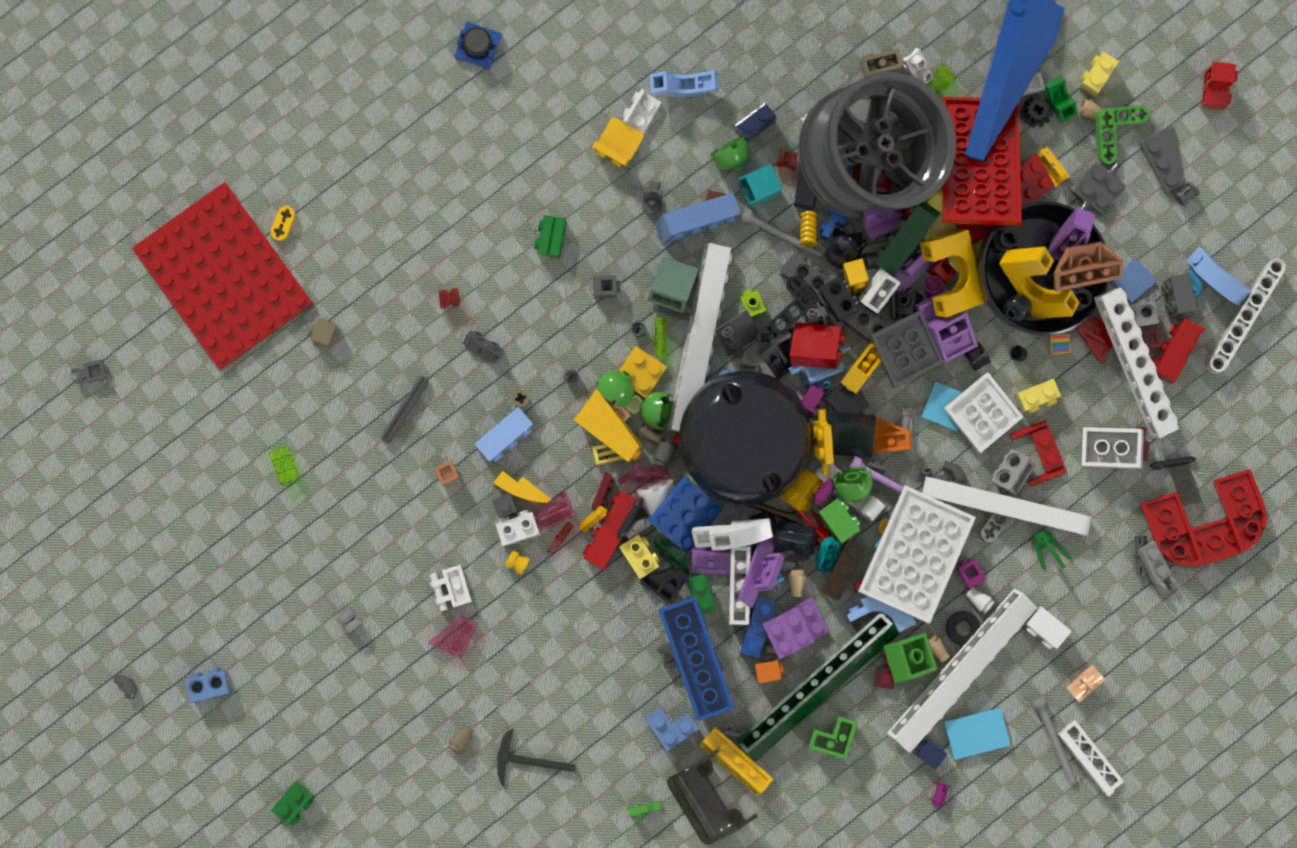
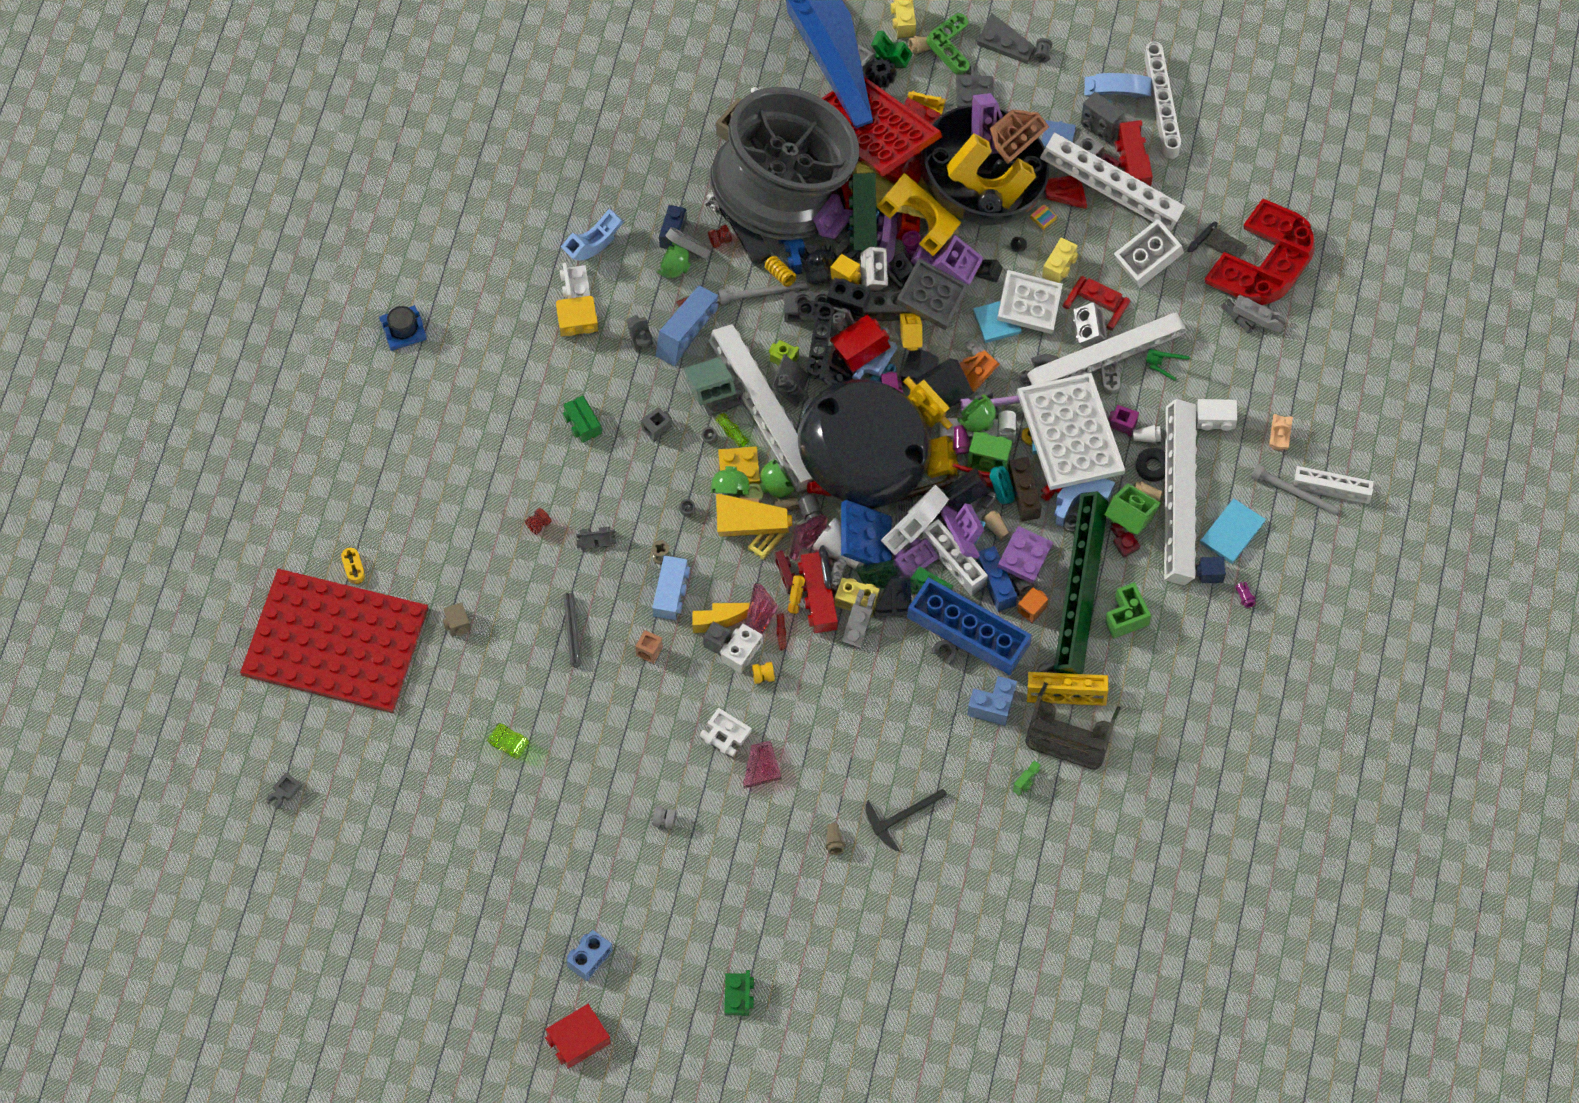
camera: 40 degrees left, 20 degrees down
(128, 685) = (519, 1006): dark grey arm -> none
(149, 743) = (577, 1036): none -> red brick
(622, 579) = (858, 620): none -> light grey hinge
(753, 148) = (688, 242): none -> light grey beam
(760, 186) = (716, 266): teal piece -> none

